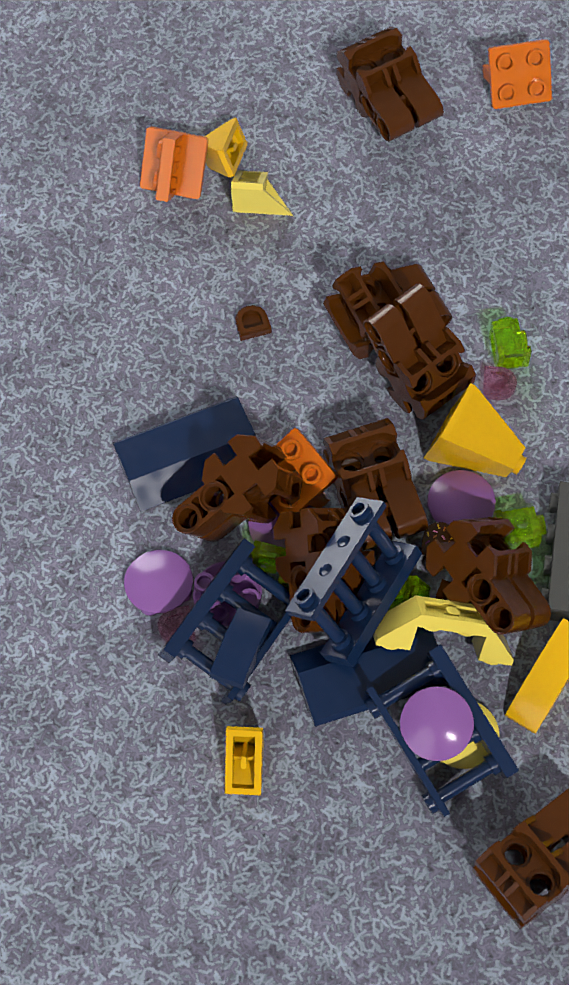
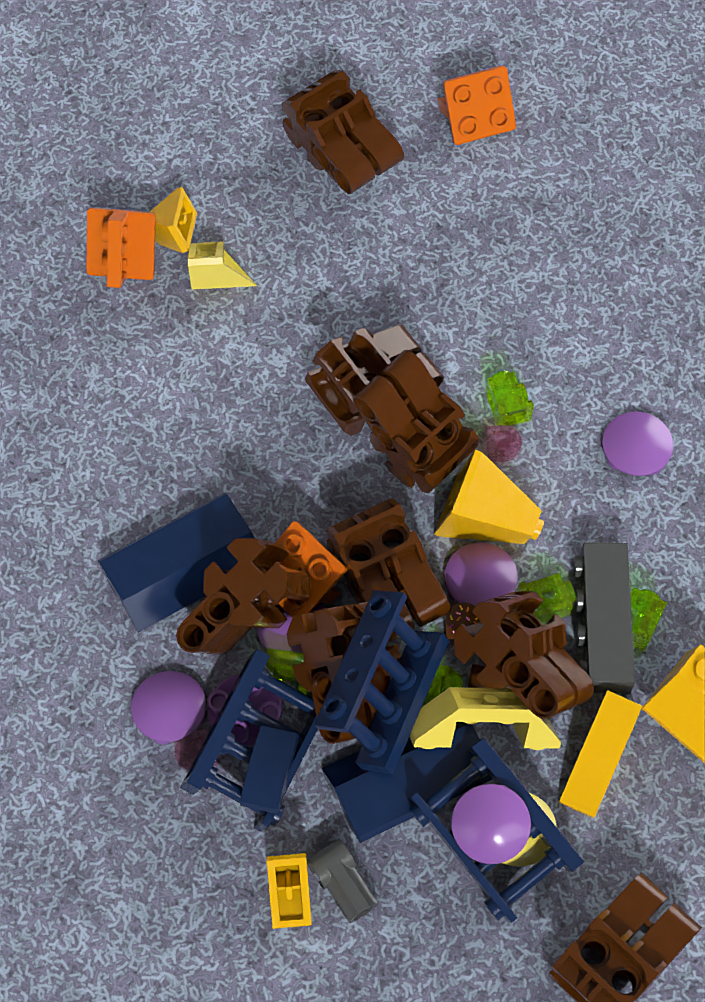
camera: 10 degrees left, 0 degrees up
(252, 322) = (230, 409): reddish brown tile -> none
(292, 754) = (339, 875): none -> dark grey piece

